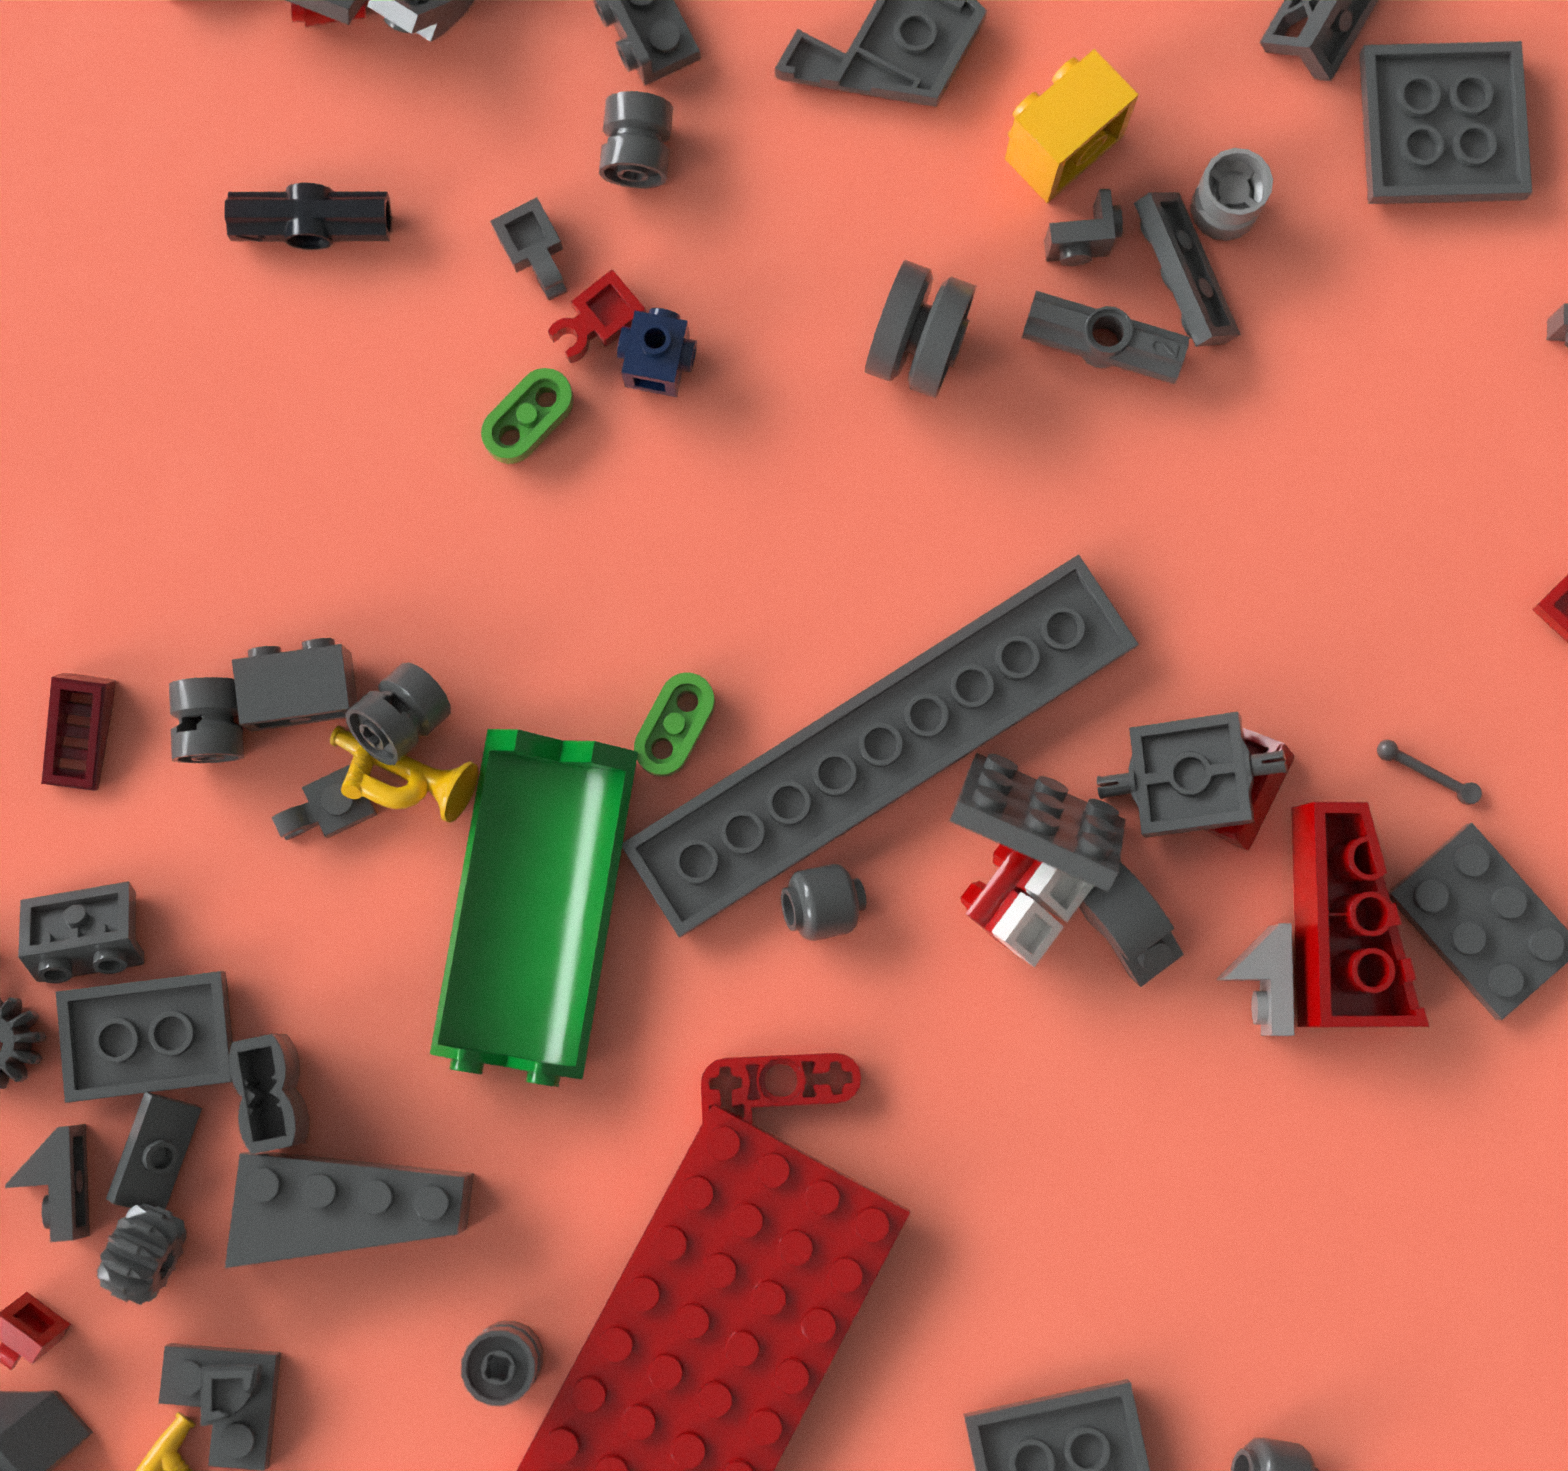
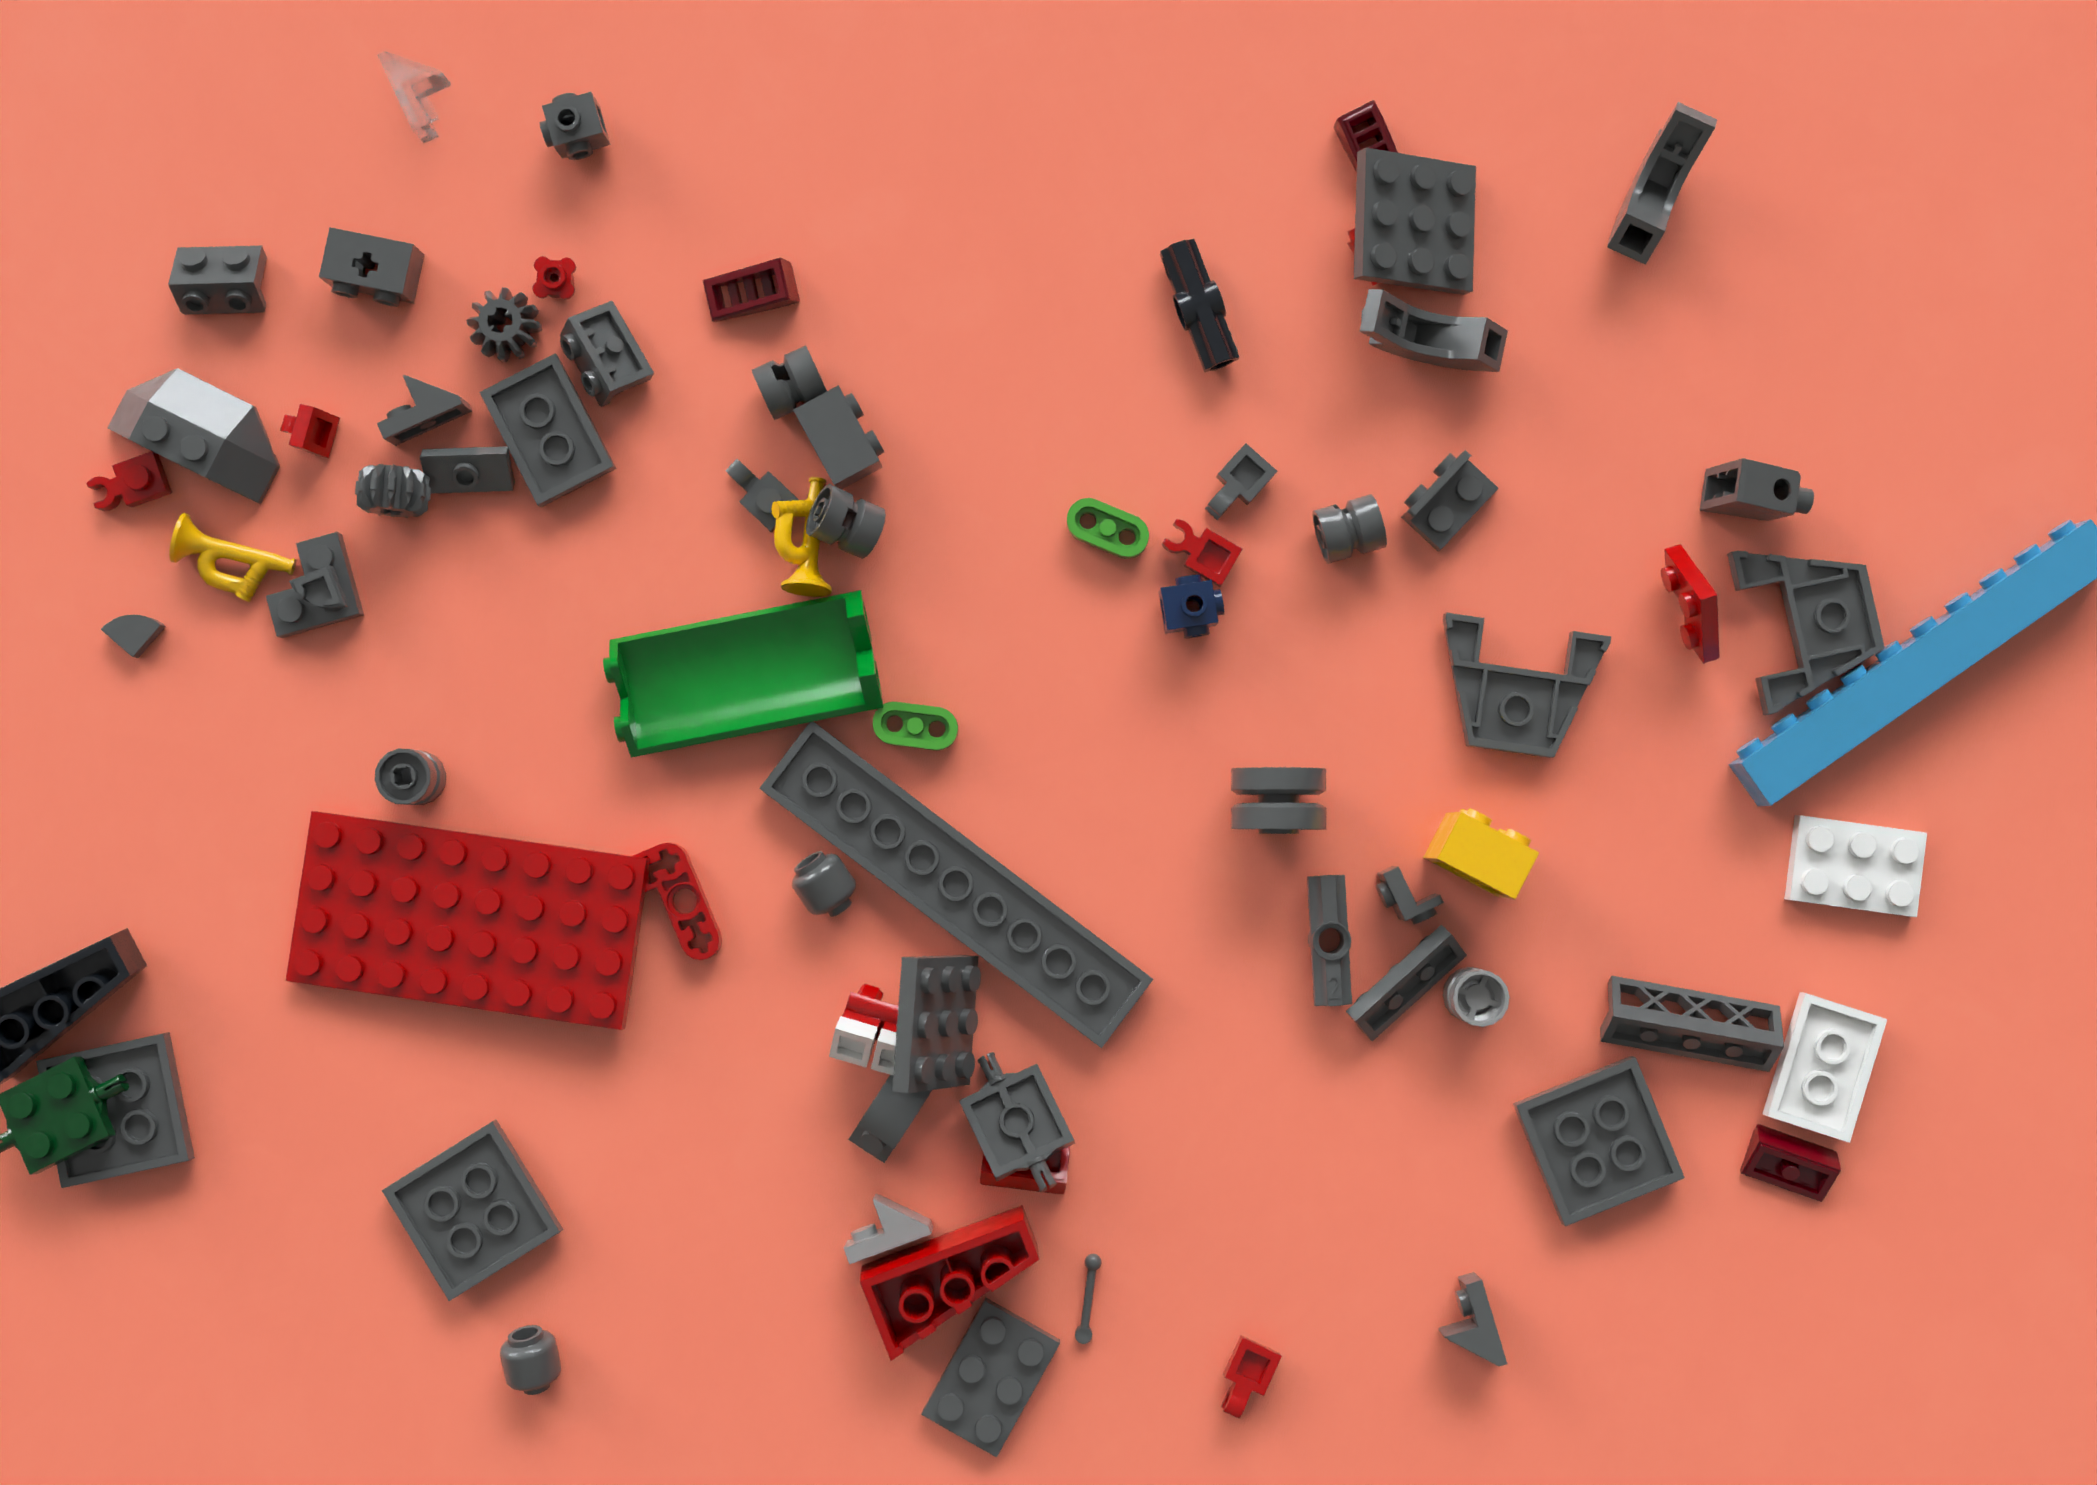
camera: 65 degrees right, 5 degrees up
(266, 1078) = (529, 542): dark grey brick -> none
(329, 1205) = (478, 615): dark grey wedge -> none

